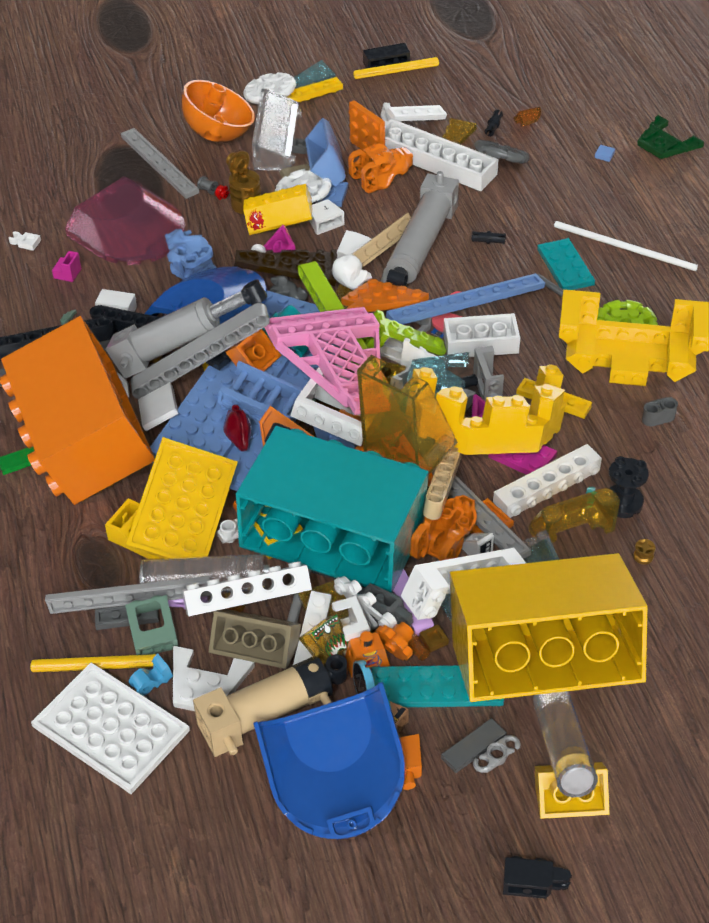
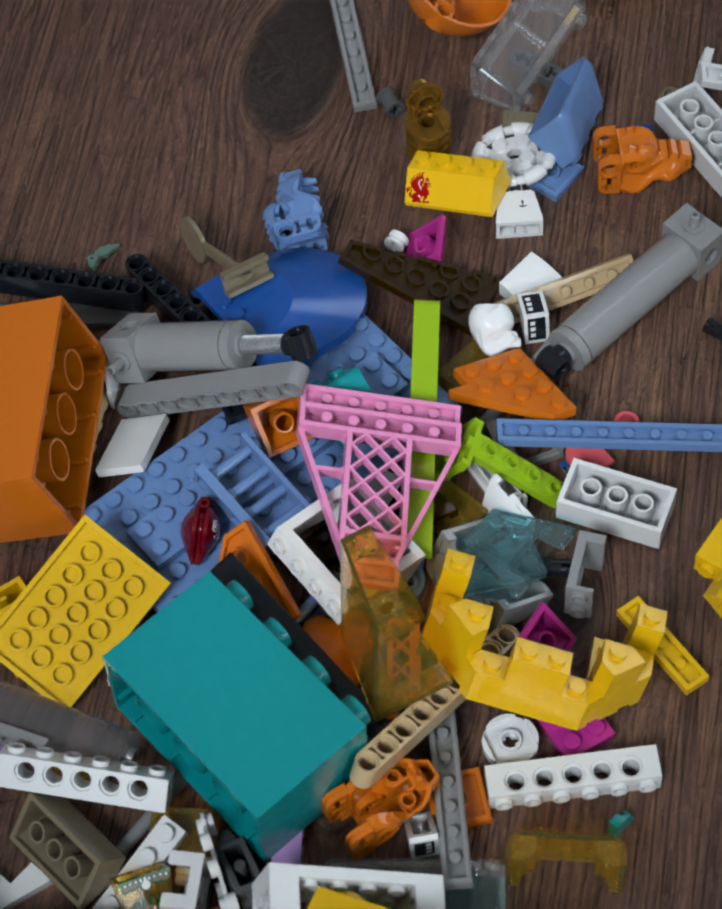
camera: 30 degrees right, 10 degrees up
(26, 241) = (113, 111): white plate -> none
(67, 267) = (141, 174): dark pink piece -> none
(117, 300) = (171, 257): white brick -> none
(125, 223) = (253, 127): clear pink windscreen -> none
(180, 286) = (238, 276): none -> dark tan piece
(221, 192) = (399, 120): red plate -> none
(287, 288) = (396, 318): dark grey animal -> none
(365, 126) = (647, 90): orange plate -> none
(371, 260) = (533, 317): none -> slope
(490, 470) = (515, 727): none -> white plate
(628, 475) = (664, 840): black piece -> none

